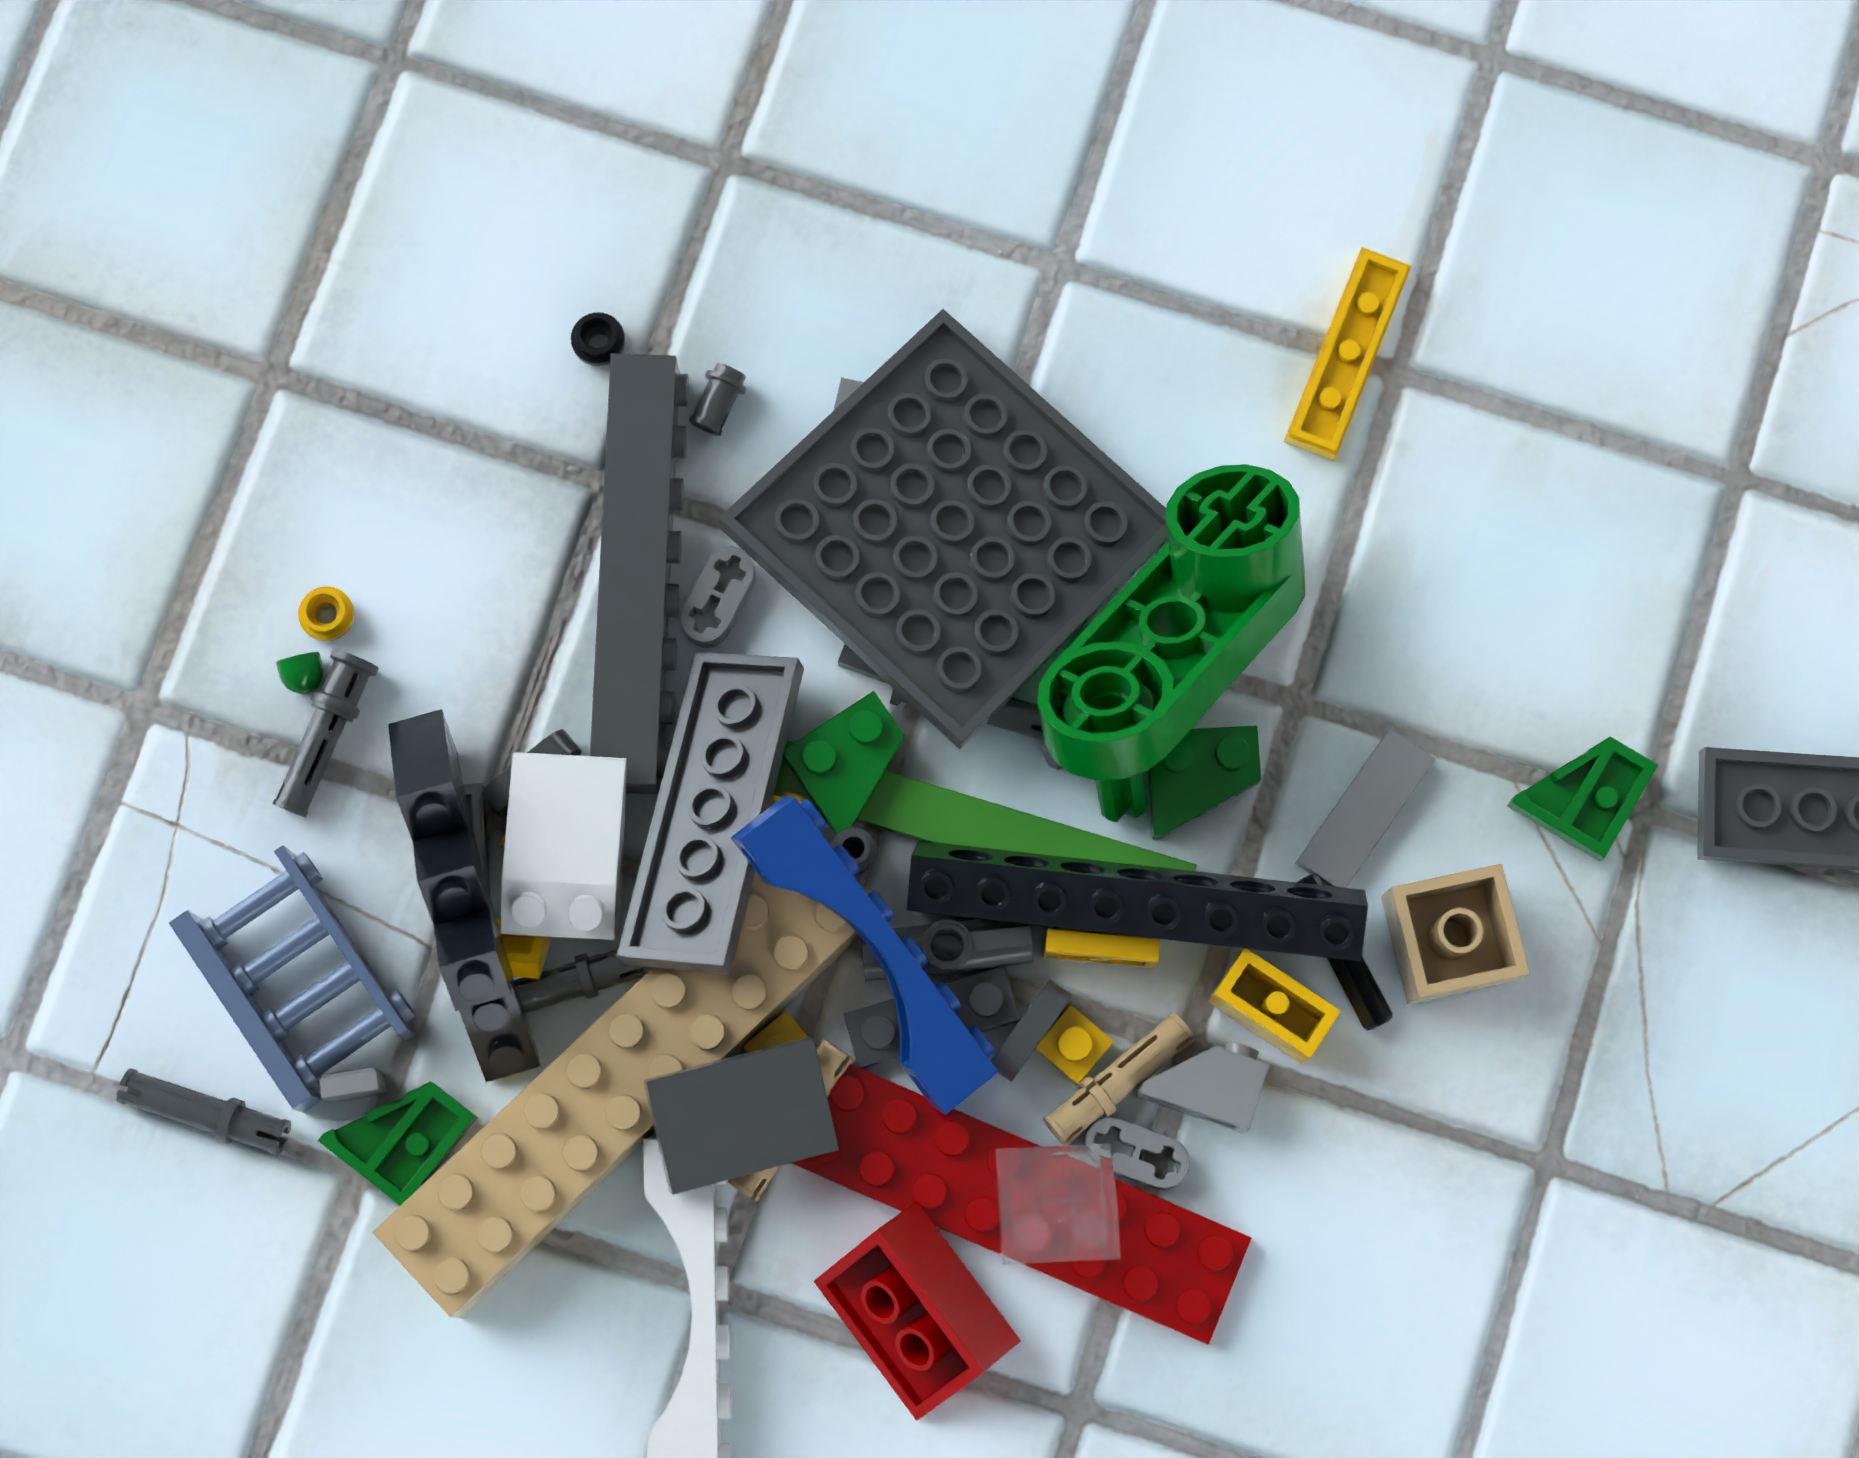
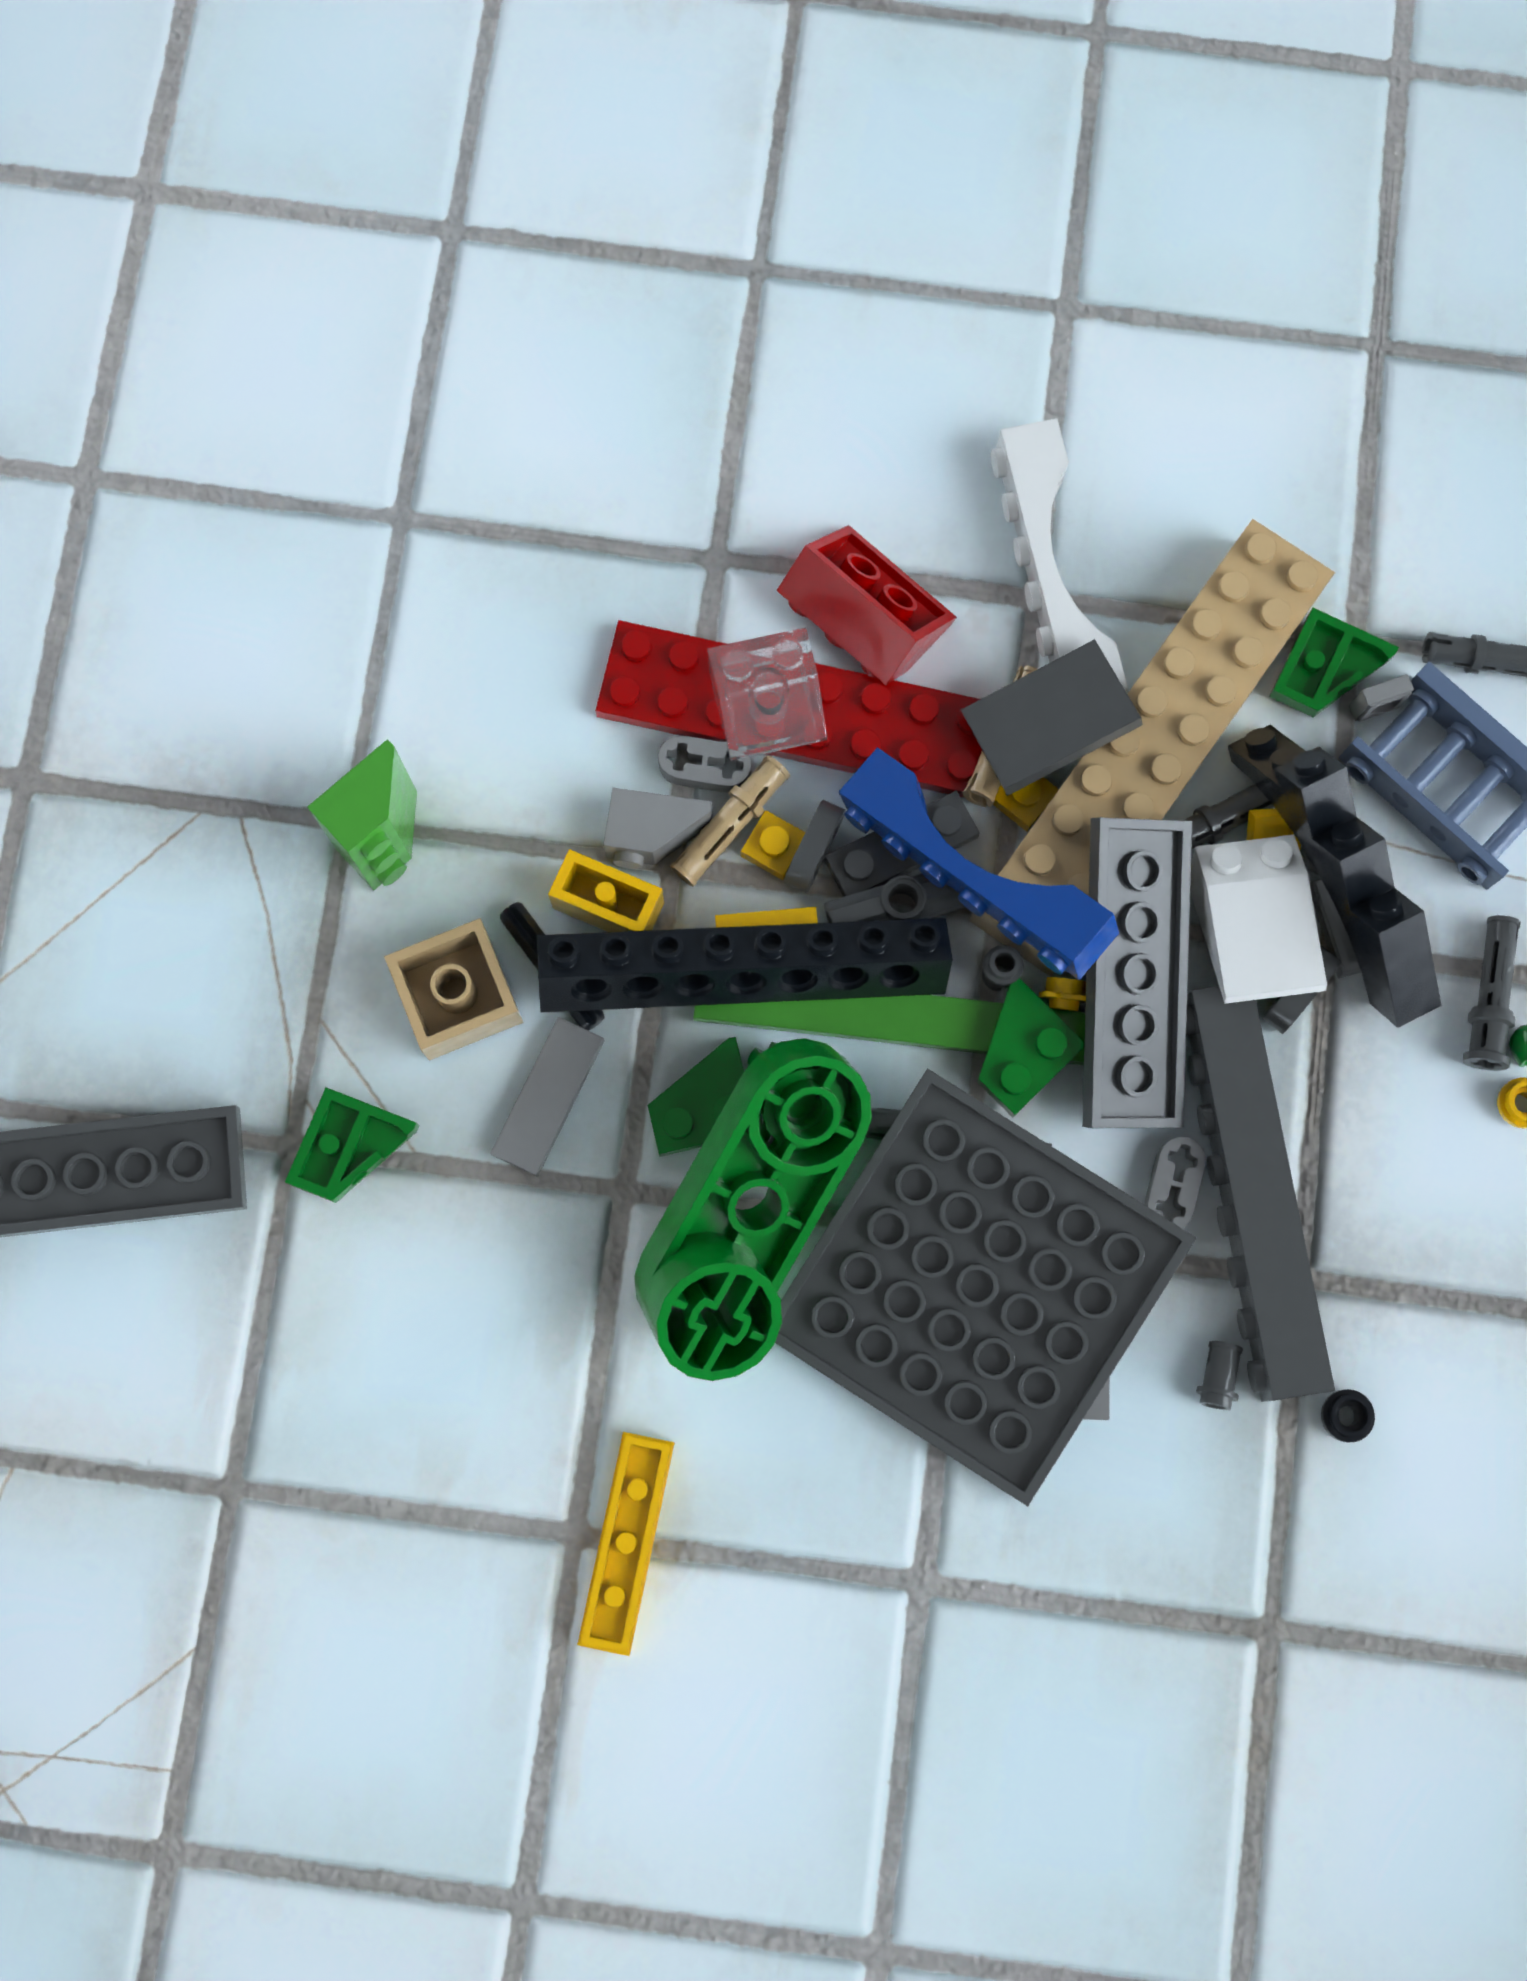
camera: 170 degrees right, 0 degrees up
(1526, 1126) = (371, 816): none -> bright green slope

